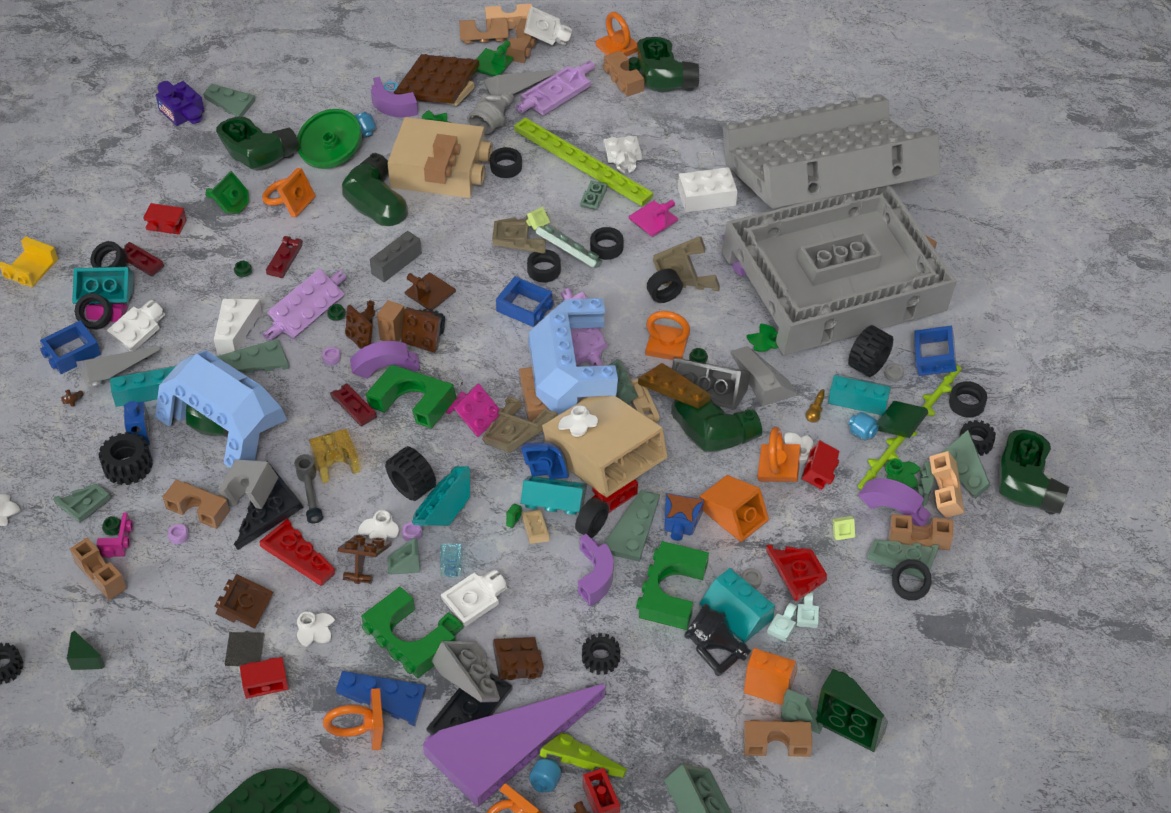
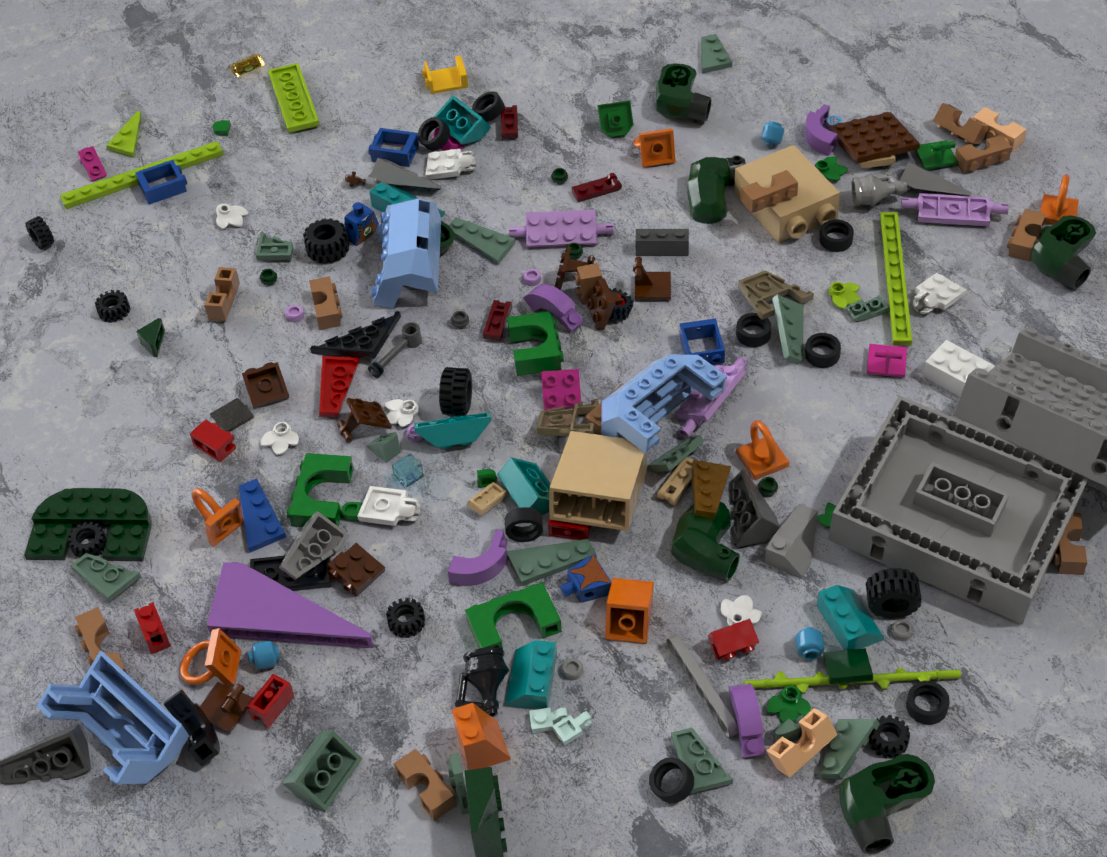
camera: 55 degrees right, 0 degrees up
(117, 546) = (260, 289): dark pink bracket -> none
(165, 218) = (558, 106): red brick -> none
(179, 102) = (674, 32): dark purple brick -> none
(235, 322) = (500, 206): white wedge -> none
(248, 477) = (362, 314): light grey piece -> none
(323, 426) = (460, 319): none -> dark grey plate
(329, 138) = (733, 126): green dish -> none
(332, 449) = (438, 335): clear yellow piece -> none
(537, 218) = (791, 290): yellowish green tile -> none
(545, 459) = (549, 455): blue brick -> none
(546, 27) = (1009, 154): white plate -> none
(565, 197) = (844, 294): none -> lime plate
(578, 421) = (589, 446): white plate -> none
(580, 755) = (299, 657): lime wing -> none
(660, 278) = (817, 405): black tyre -> none
(680, 261) = (836, 409): dark tan wing -> none
(778, 460) = (710, 607): orange tile -> none
(798, 569) = (606, 693): red wing -> none
(813, 414) = (791, 602): pearl gold bar -> none
(841, 508) = (702, 686): none -> light grey beam
(843, 528) = (683, 698): yellowish green tile -> none
(937, 533) = (721, 746): medium nougat arch -> none
(944, 363) = (956, 658): blue window -> none

